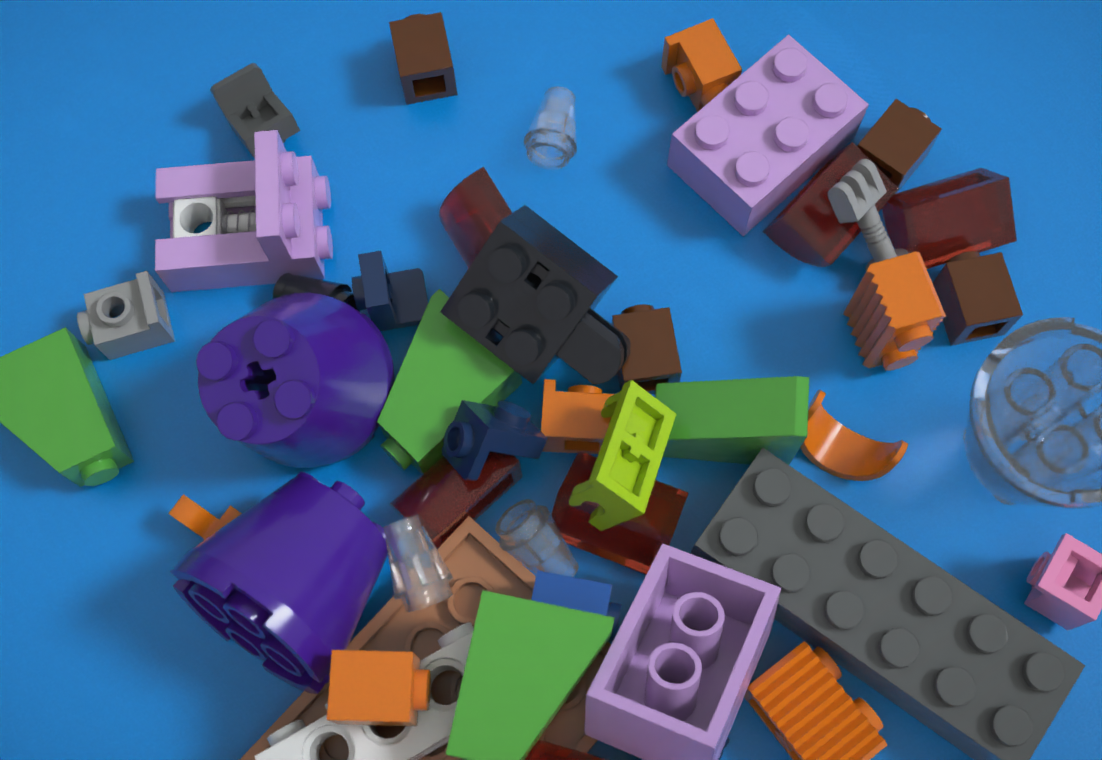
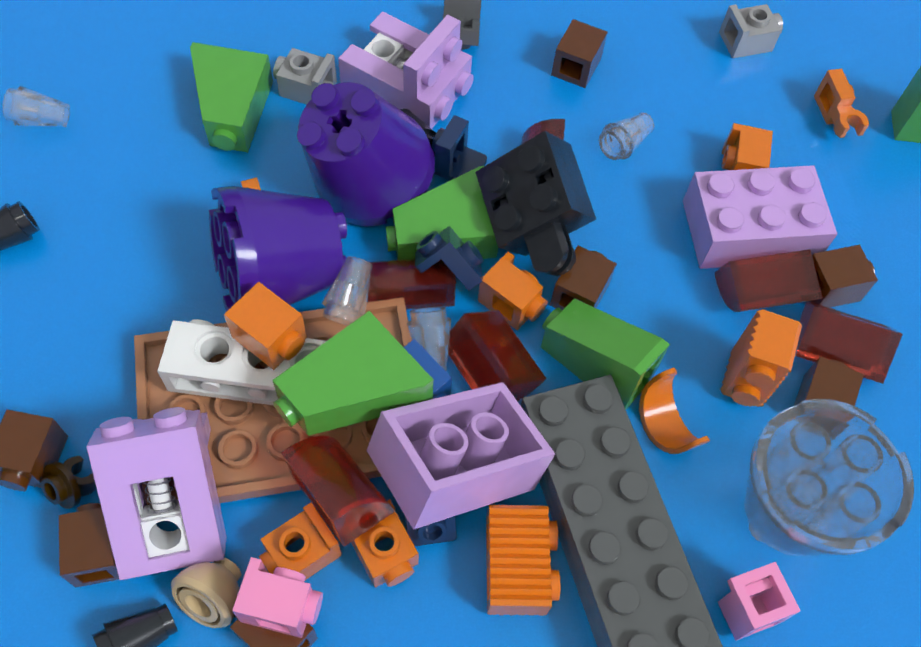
camera: 30 degrees right, 10 degrees down
(627, 457) = (518, 312): lime hinge -> none
(855, 200) = (787, 277): light grey hinge -> none

